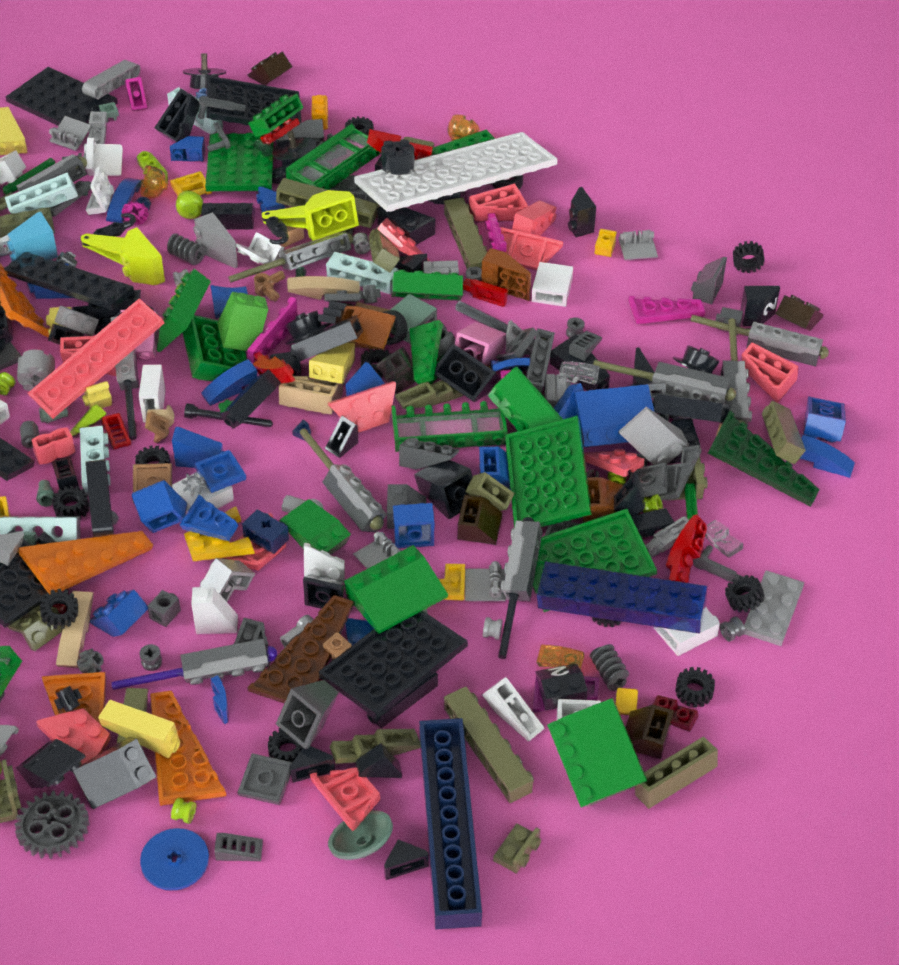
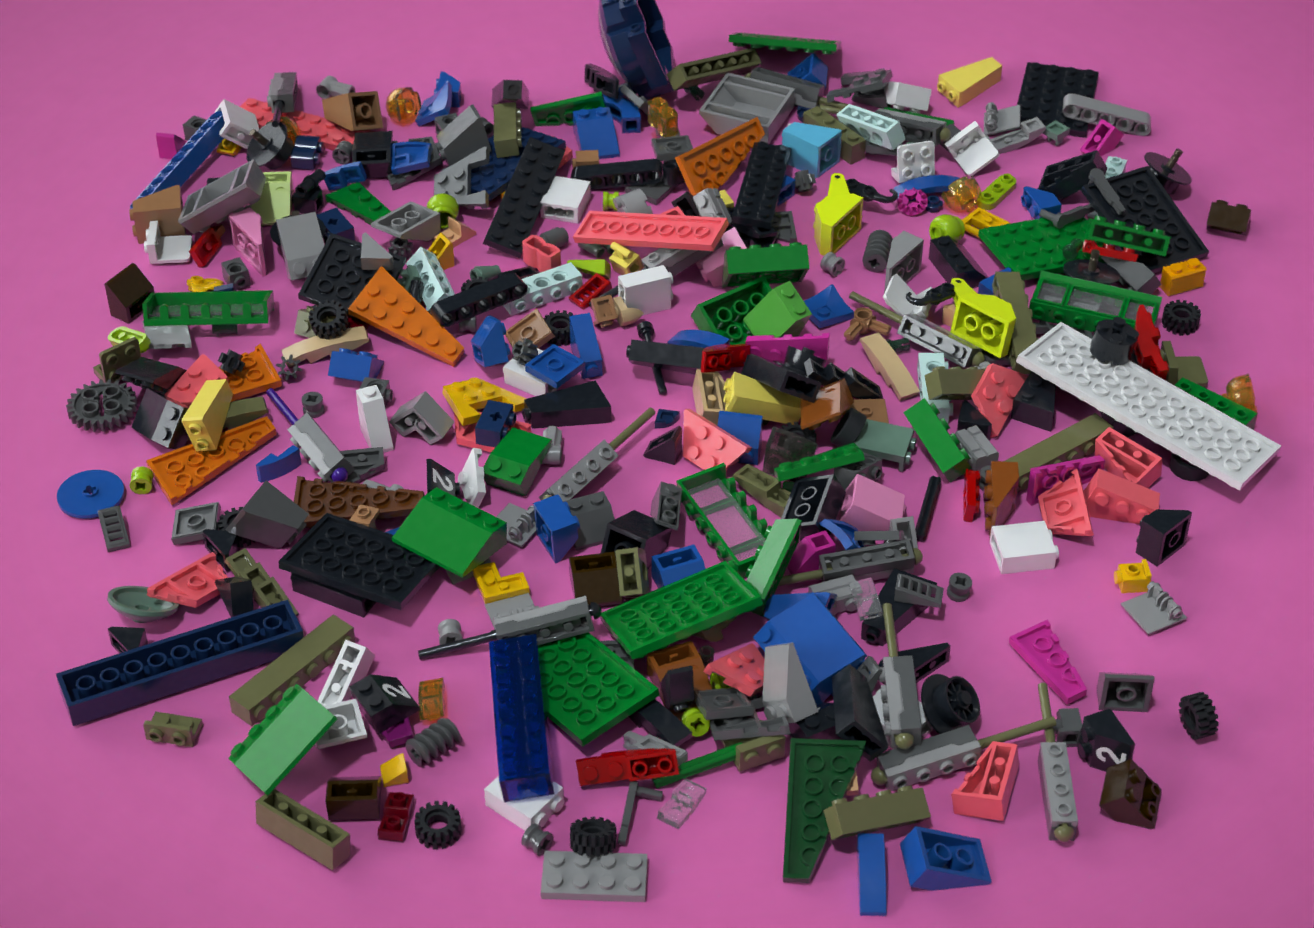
camera: 70 degrees right, 5 degrees down
(208, 520) = (486, 378): blue wing -> none
(262, 479) = (568, 407): none -> black slope
(342, 296) = (875, 381): dark grey plate -> none
(370, 294) = (899, 402): dark grey gear -> none

